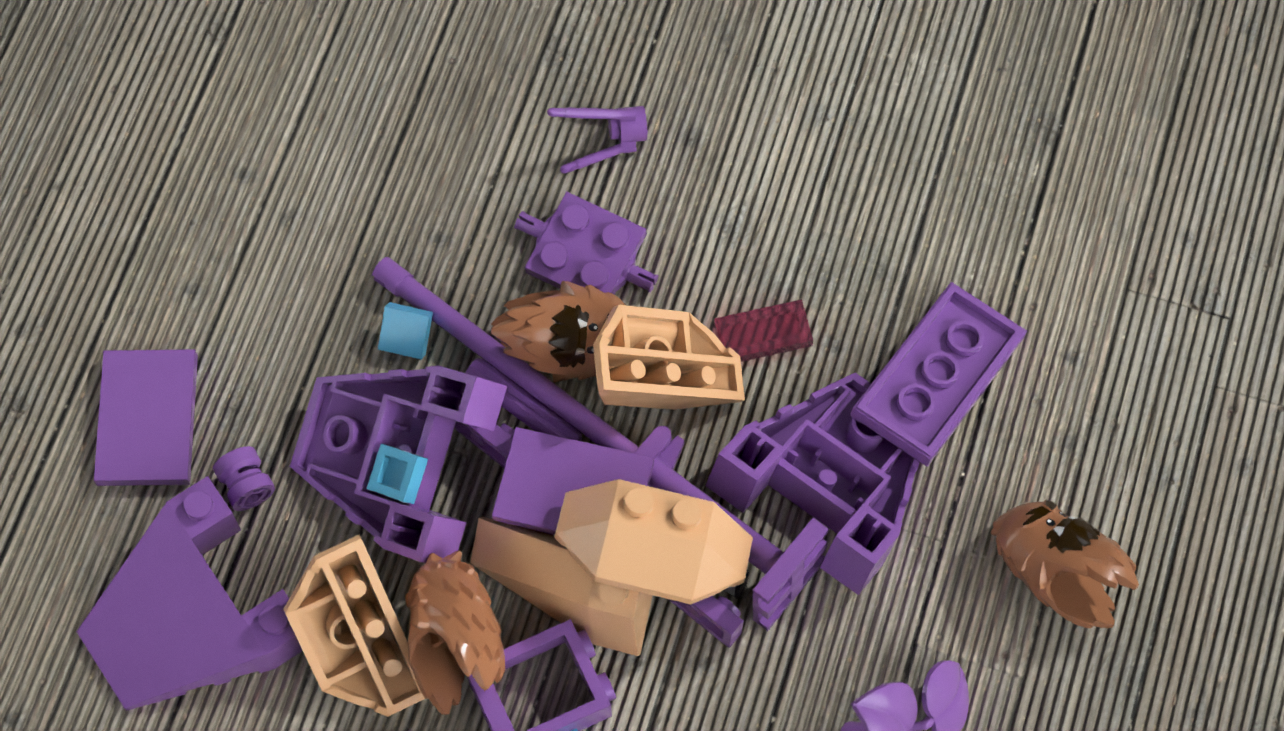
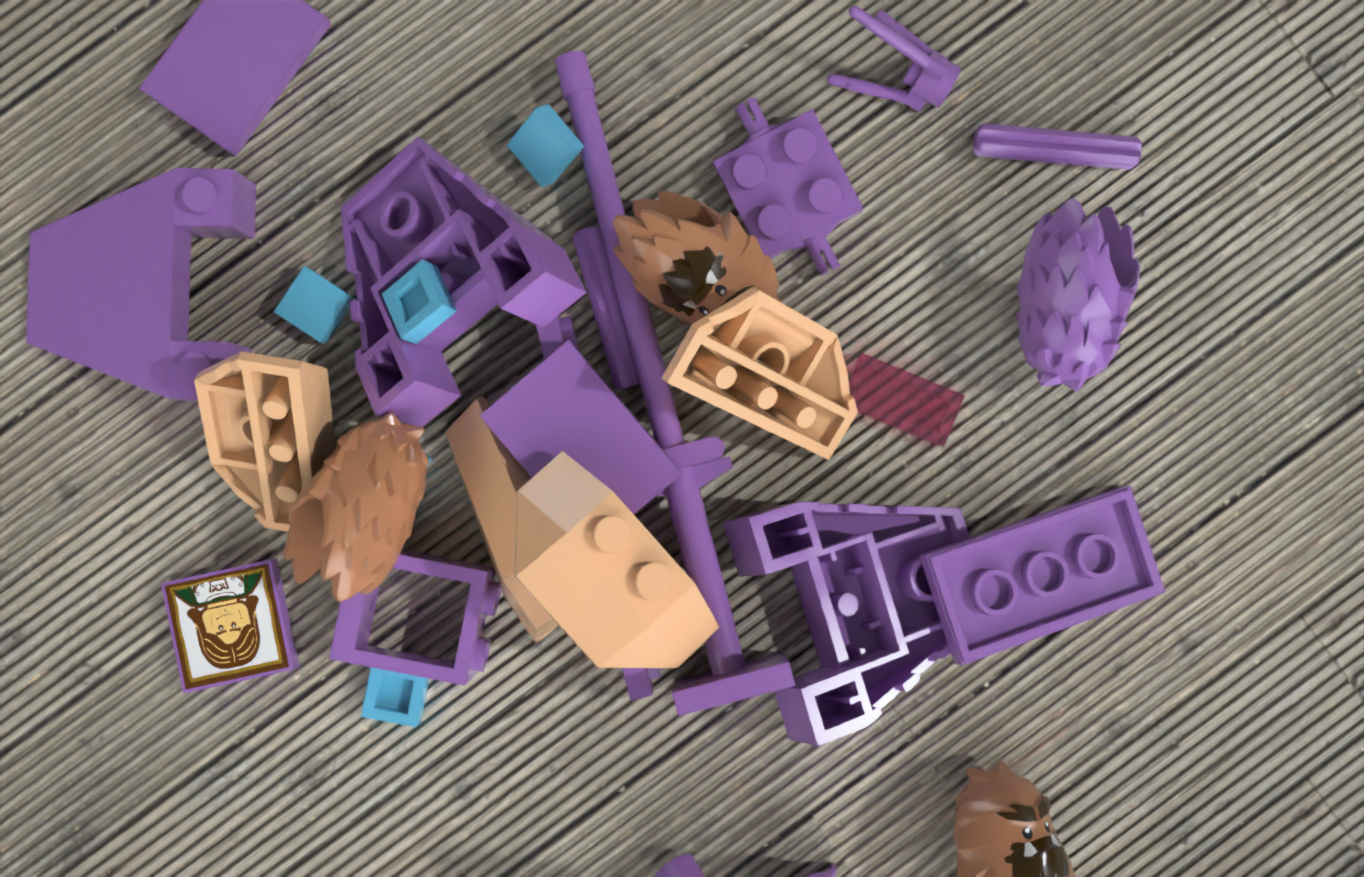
camera: 40 degrees right, 20 degrees up
(243, 477) = (281, 190): medium lavender wheel -> none
(314, 536) = (314, 305): none -> medium azure tile
(740, 113) = (1057, 146): none -> medium lavender axle
(819, 187) = (1075, 293): none -> medium lavender head

